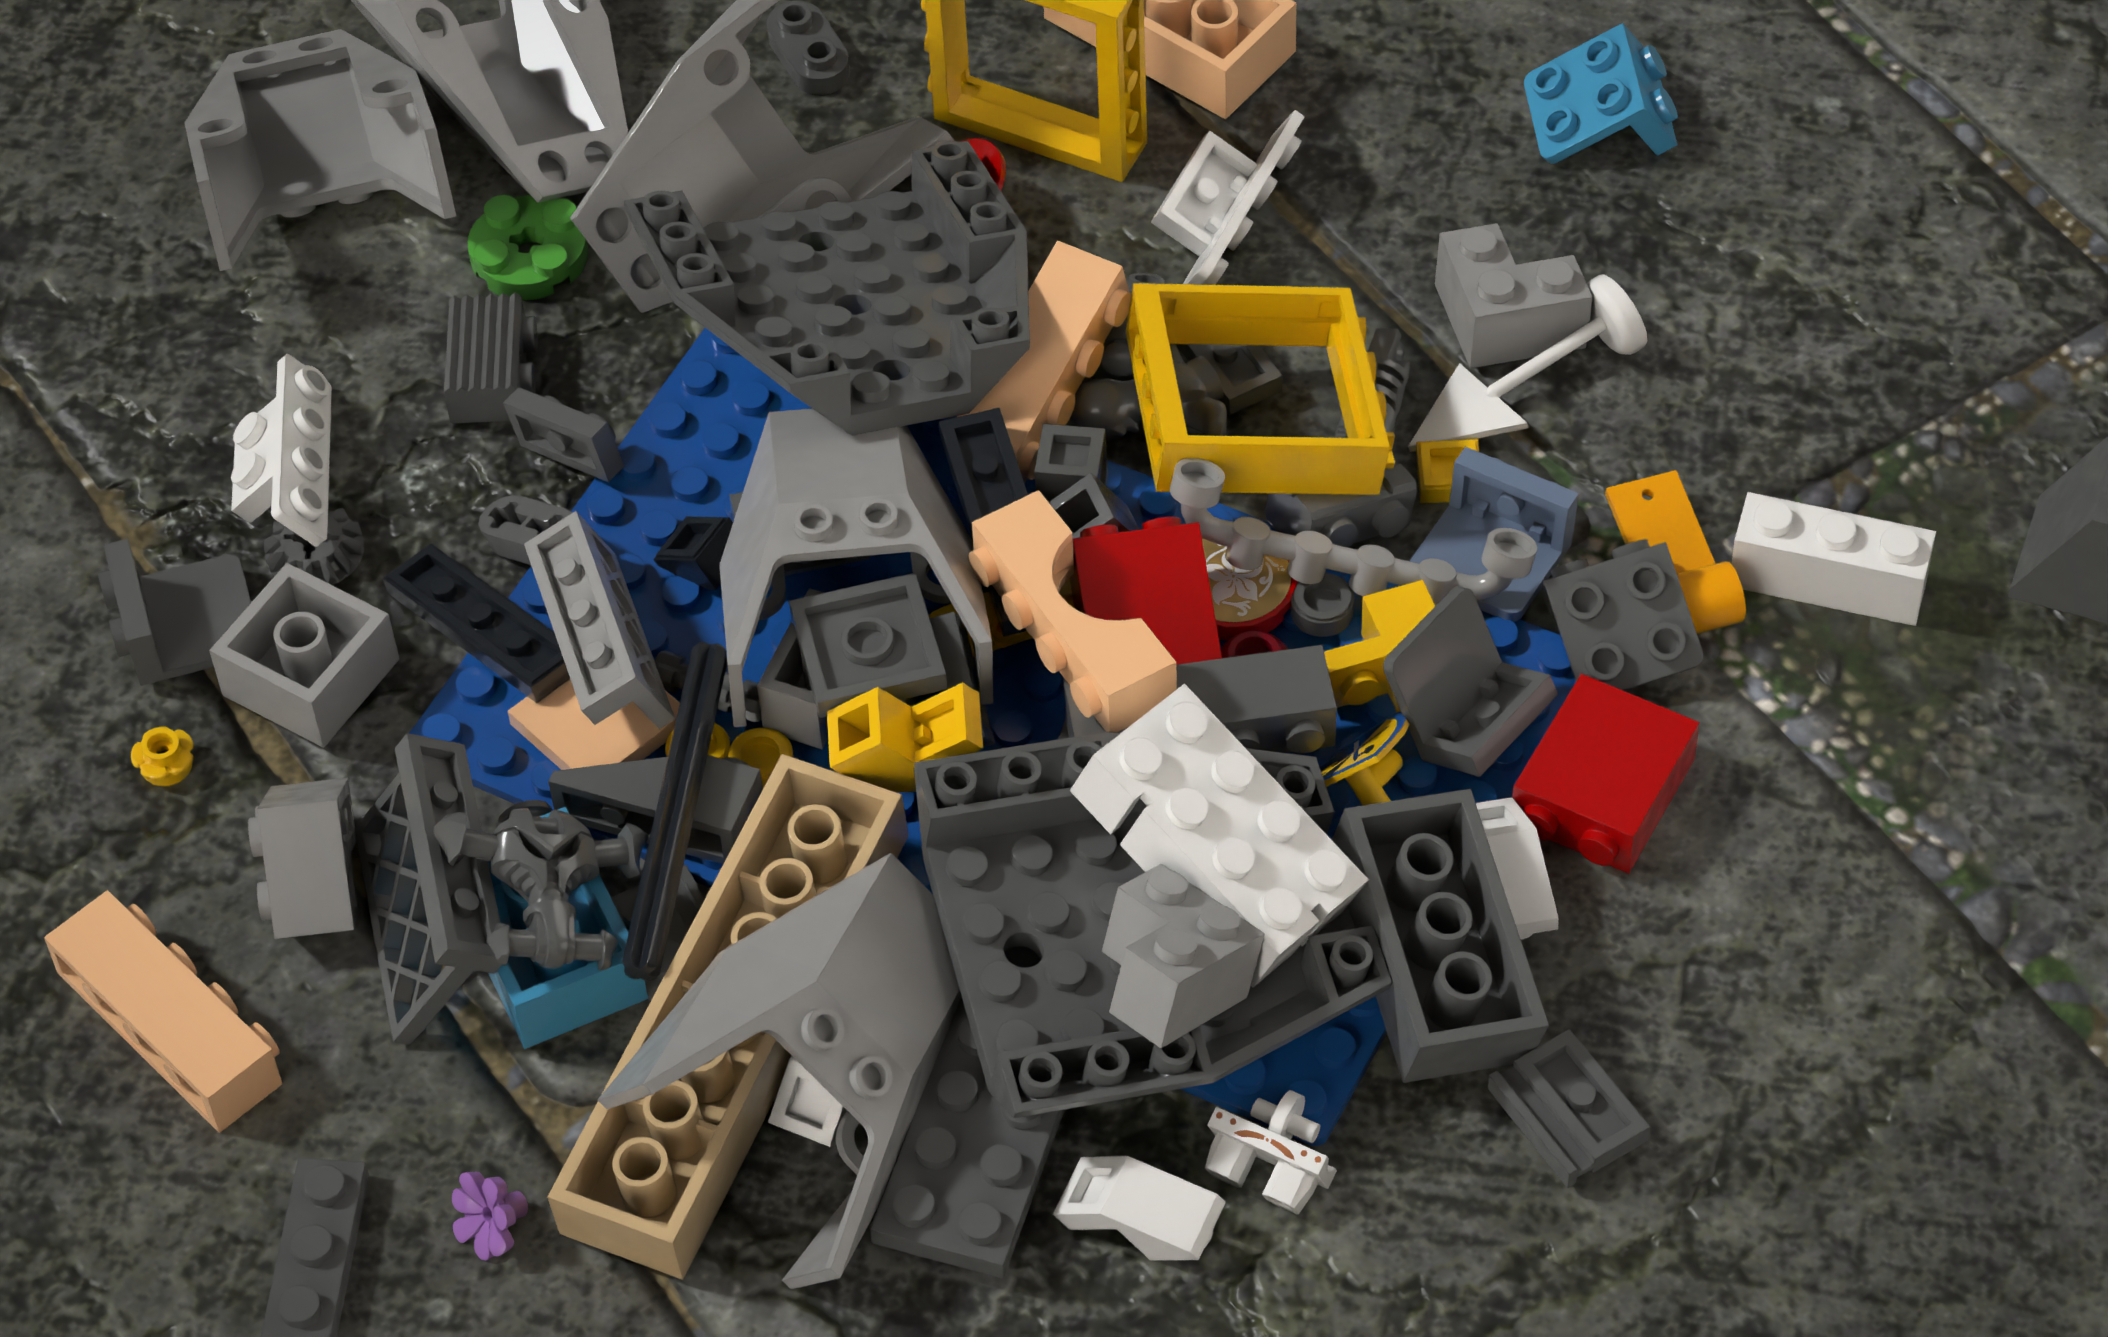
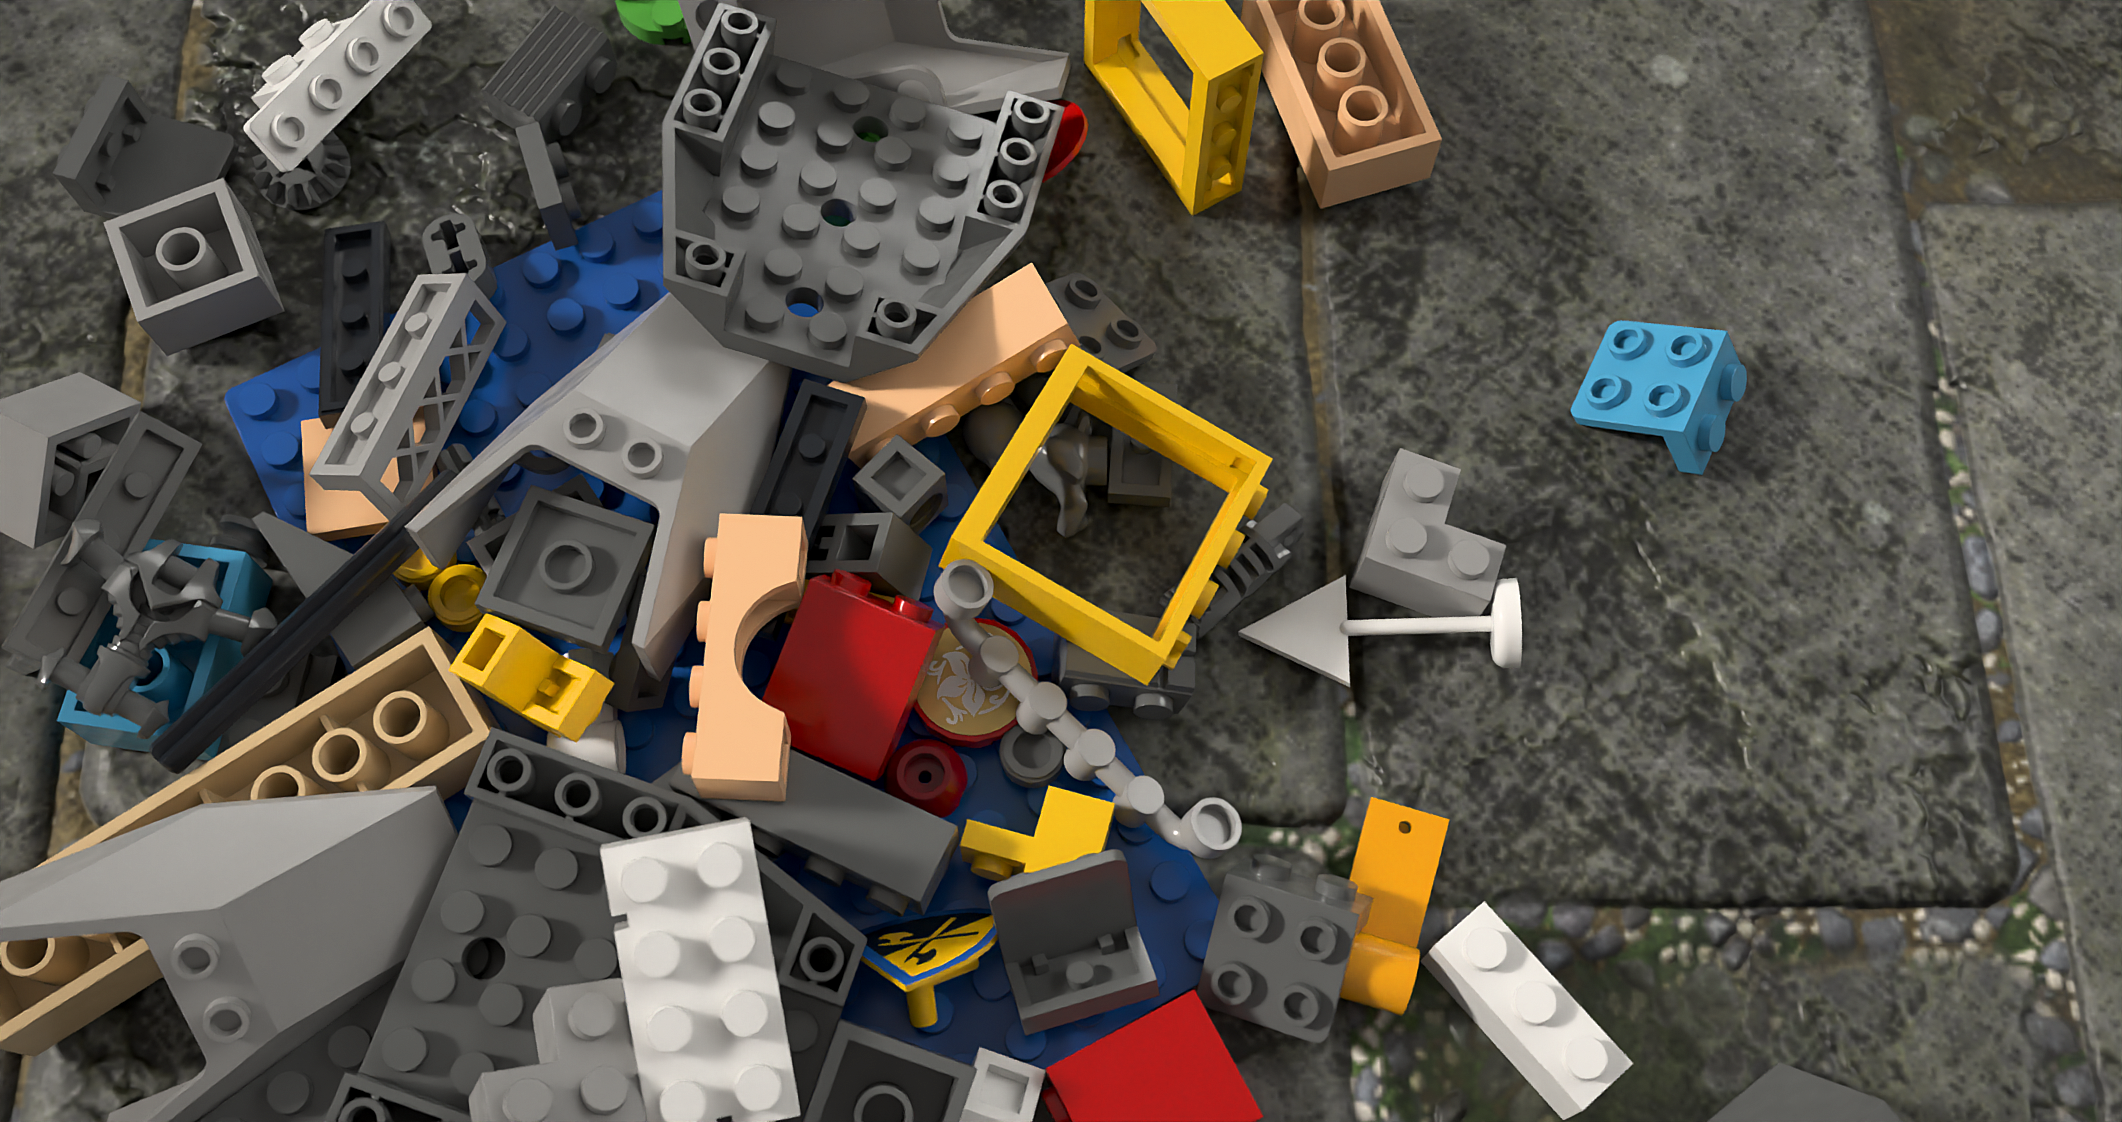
camera: 30 degrees right, 15 degrees up
(167, 767) = (54, 296): yellow plate -> none
(696, 550) = (564, 353): black slope -> none
(1215, 193) = (1247, 281): white bracket -> none
(1436, 466) = (1254, 680): yellow tile -> none
(1494, 496) = (1249, 767): sand blue bracket -> none

